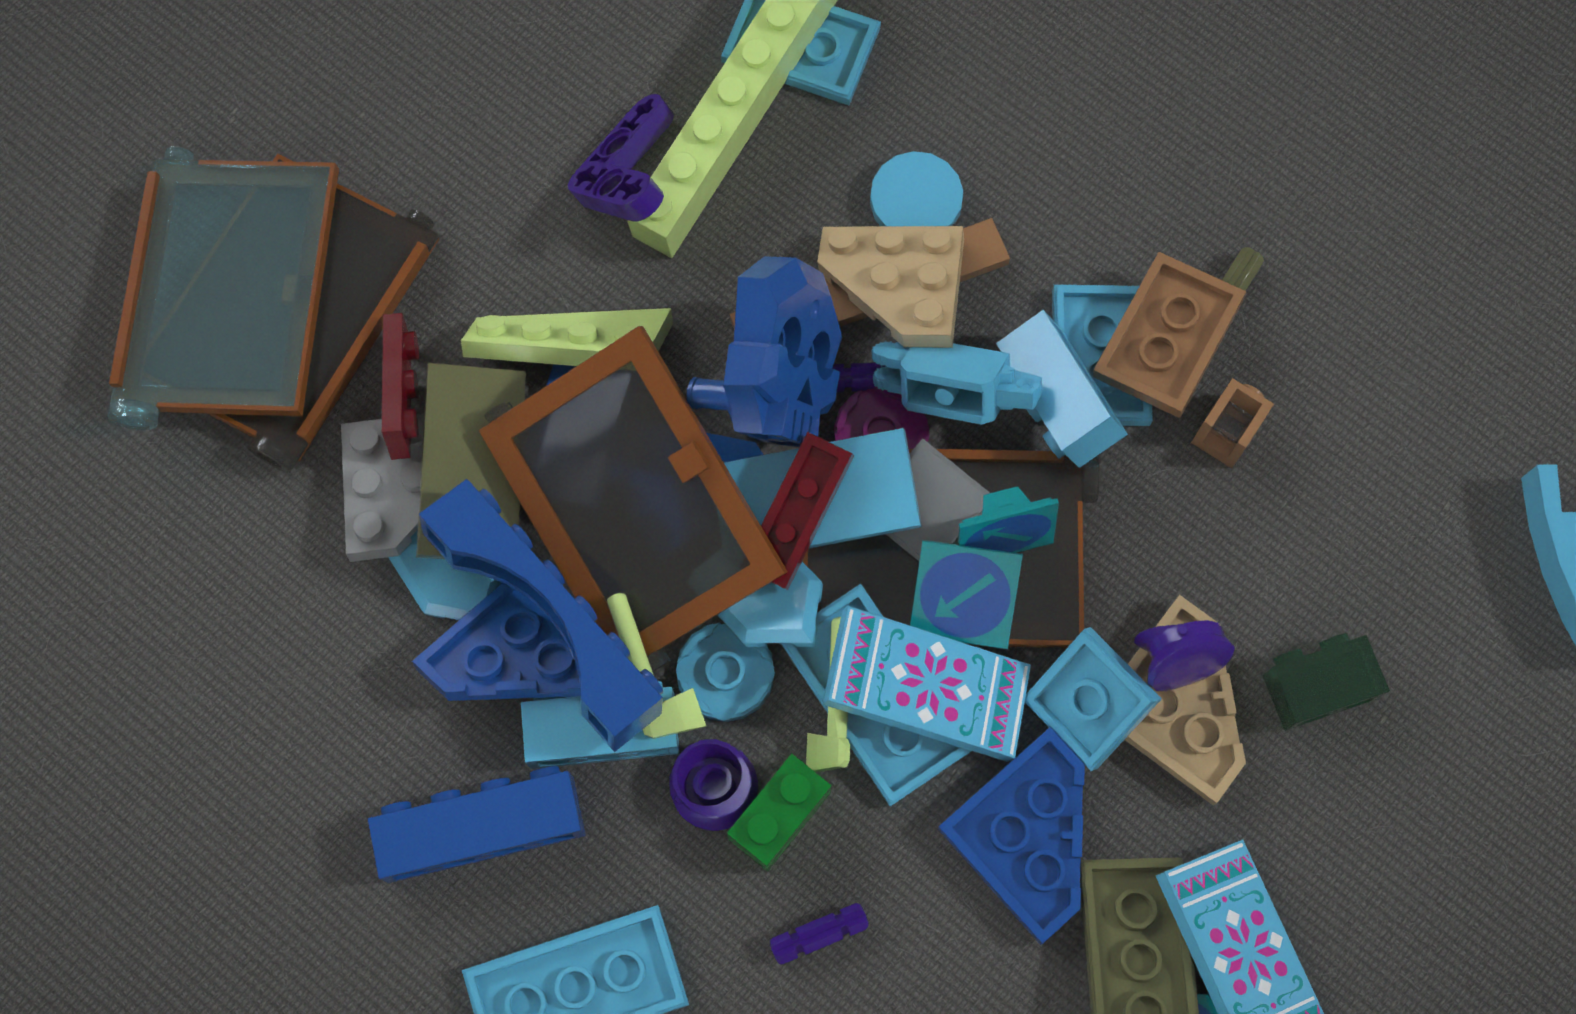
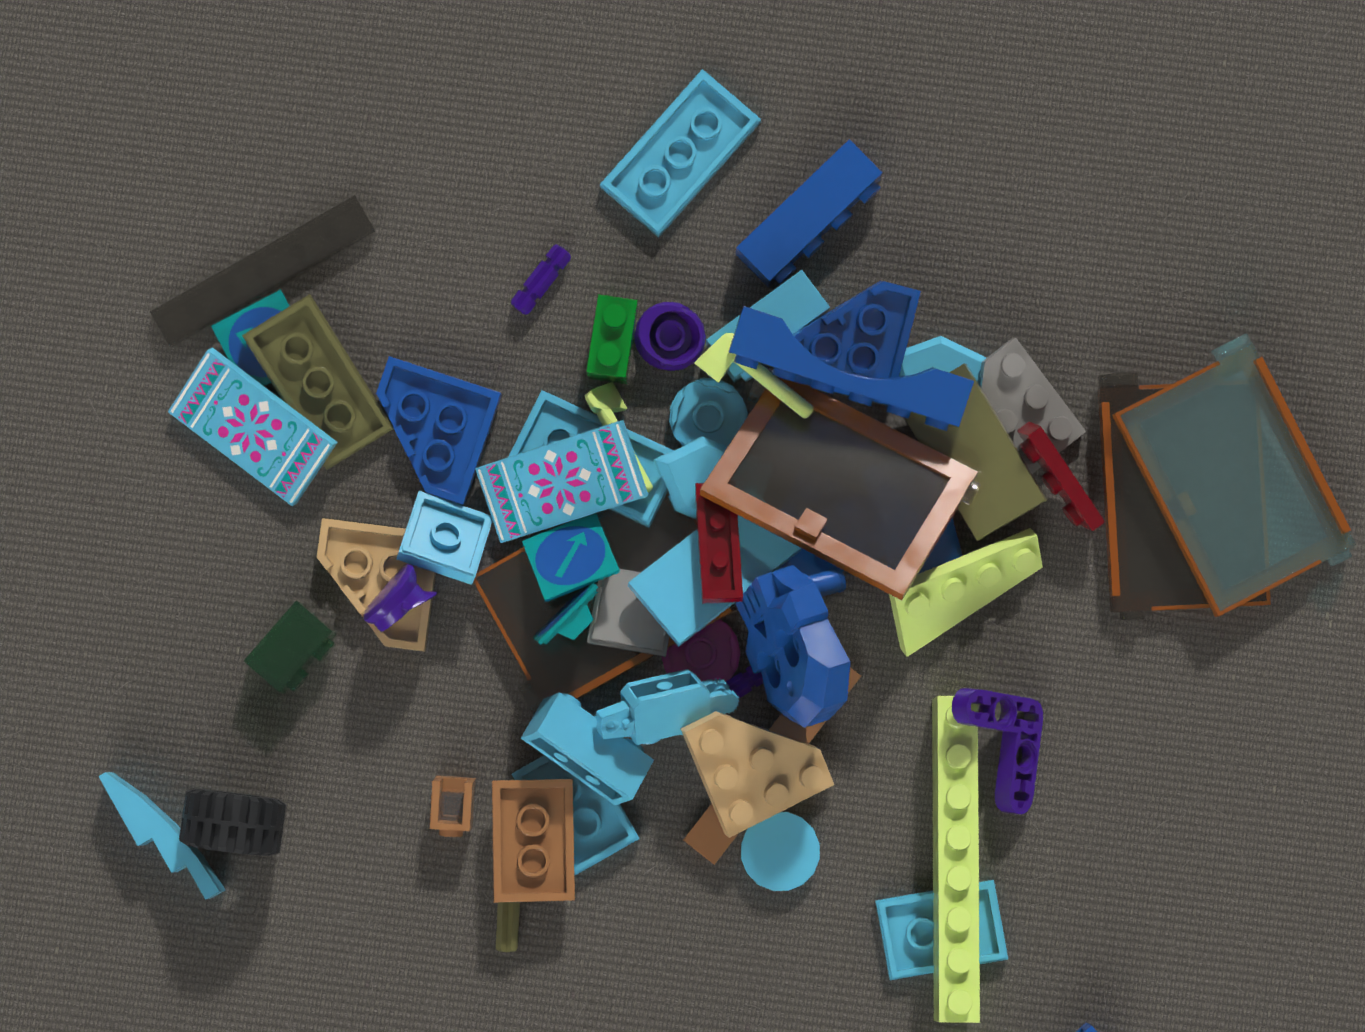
camera: 150 degrees right, 10 degrees up
(1490, 522) = (232, 822): none -> black tyre

